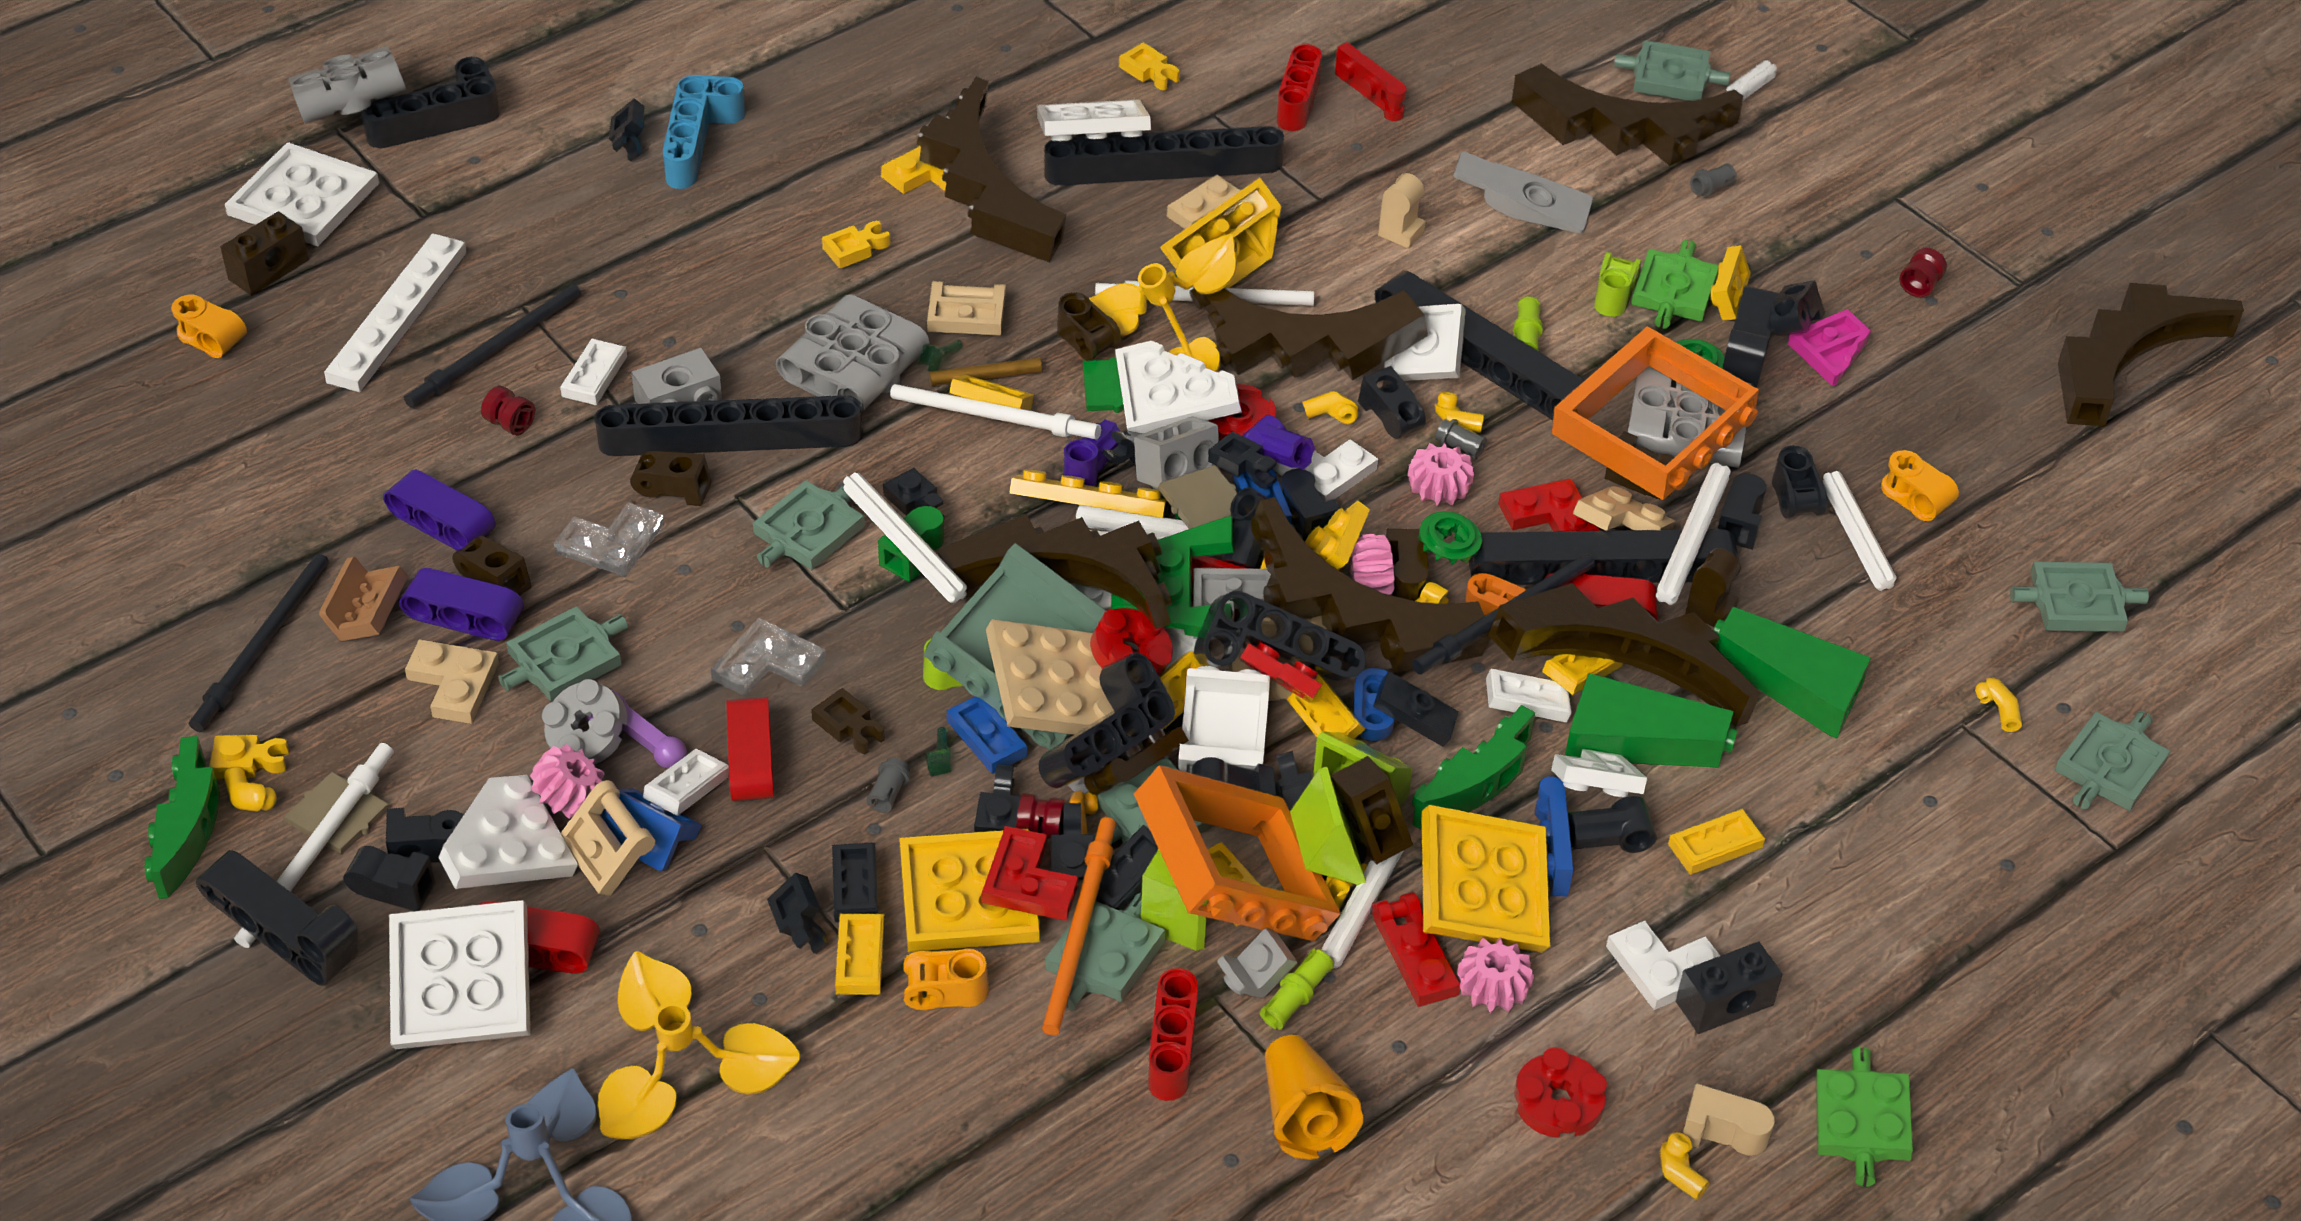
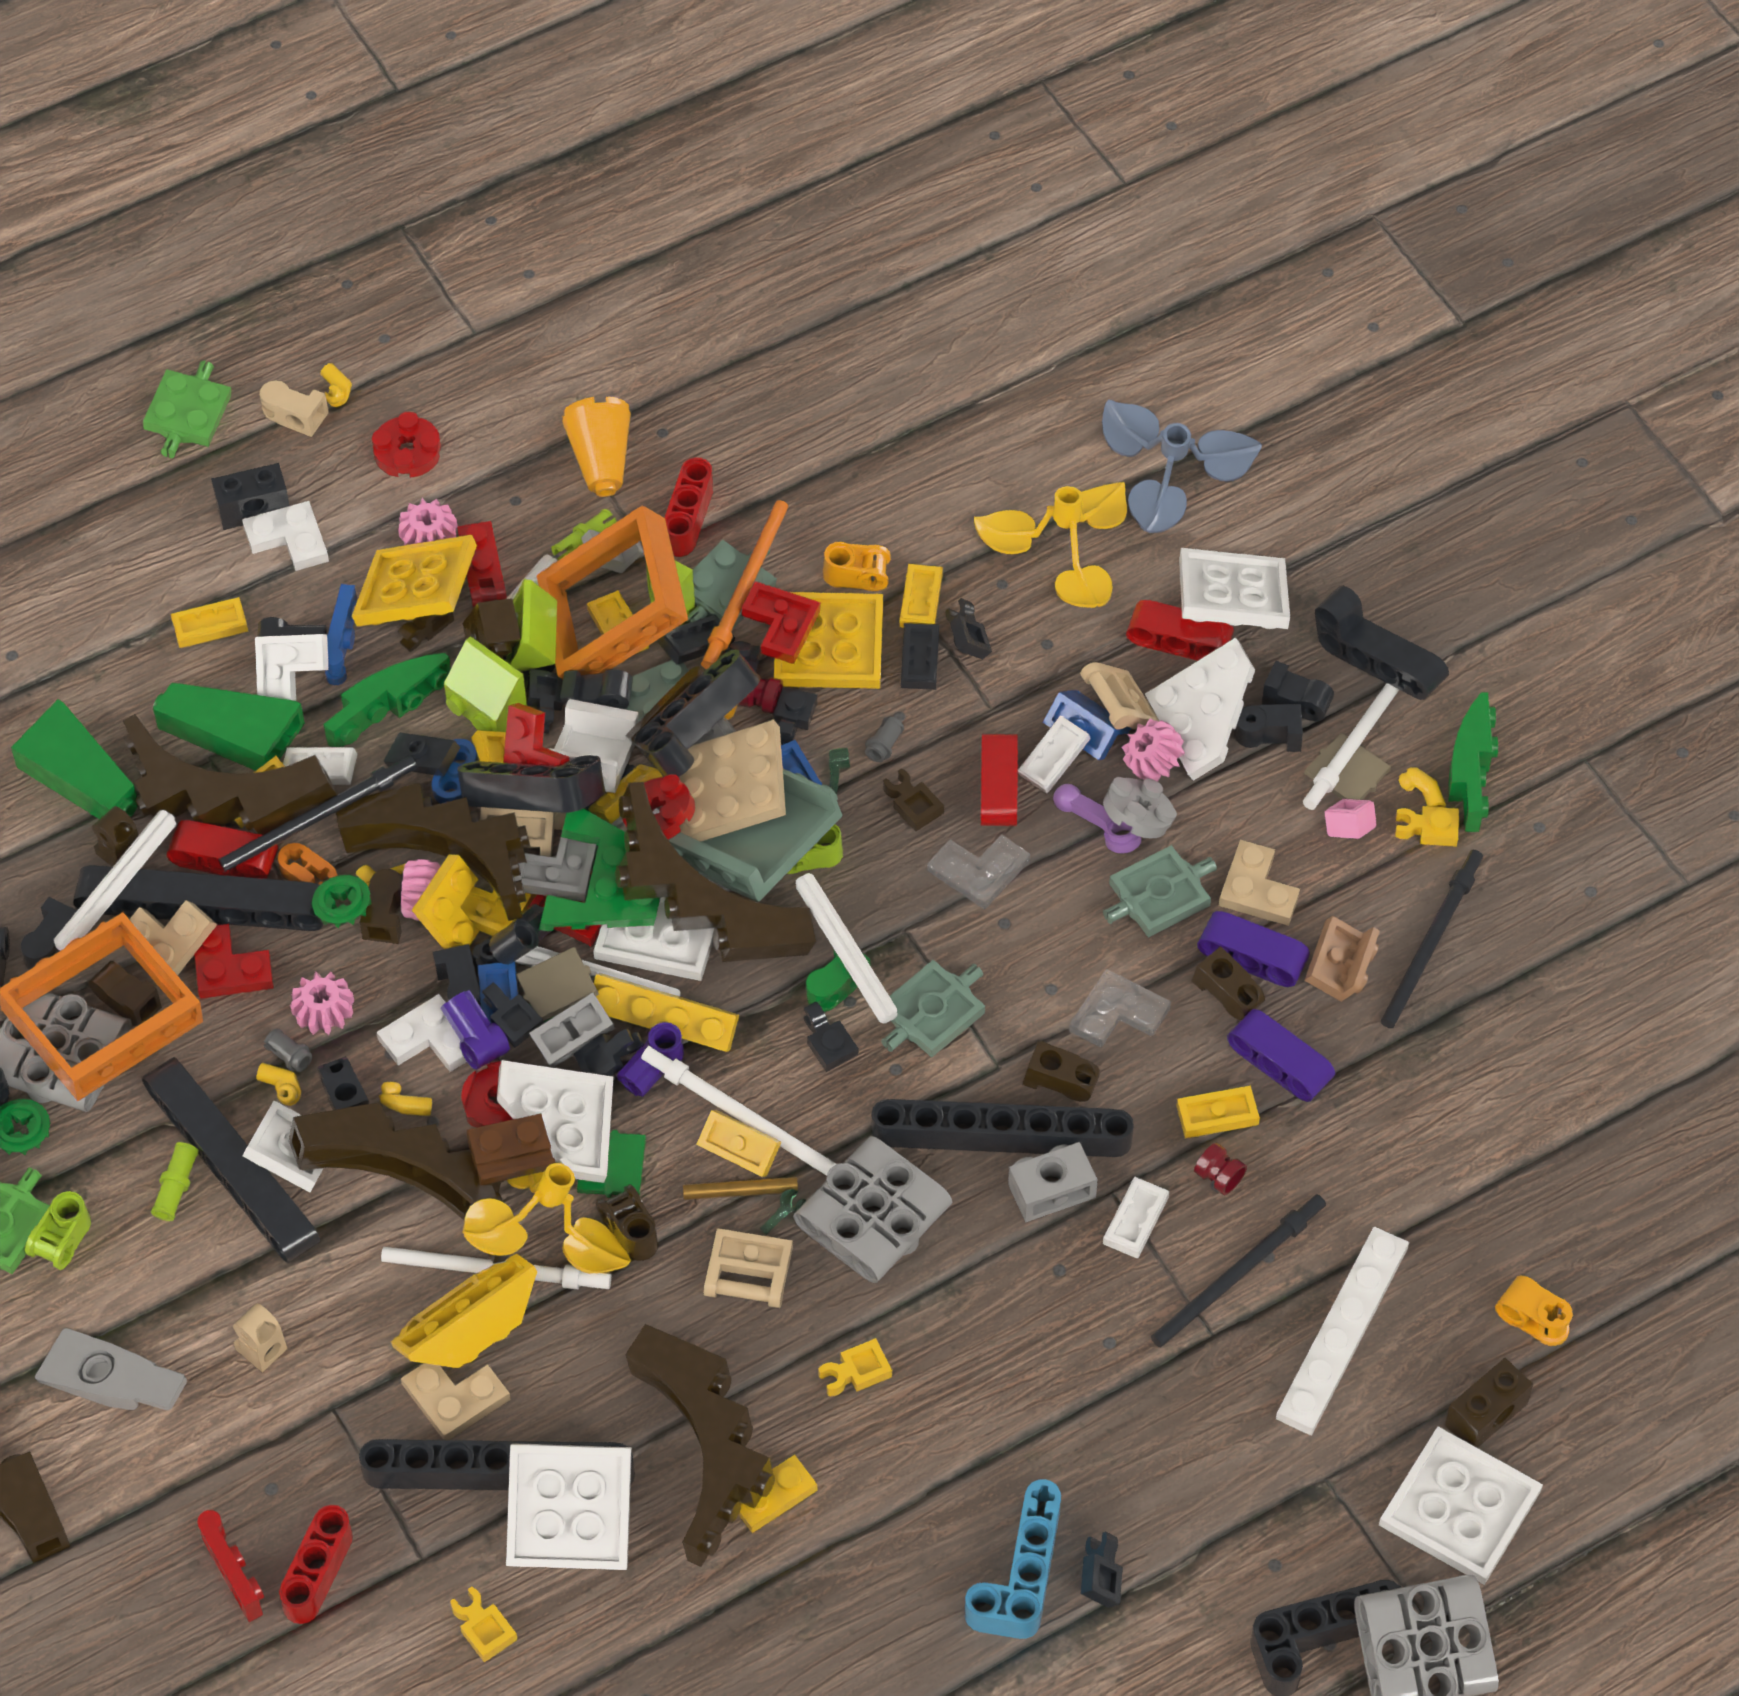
camera: 170 degrees left, 10 degrees up
(339, 750) = (1350, 818): none -> bright pink slope
(508, 460) = (1217, 1112): none -> yellow plate
(1209, 333) = (510, 1149): none -> reddish brown plate

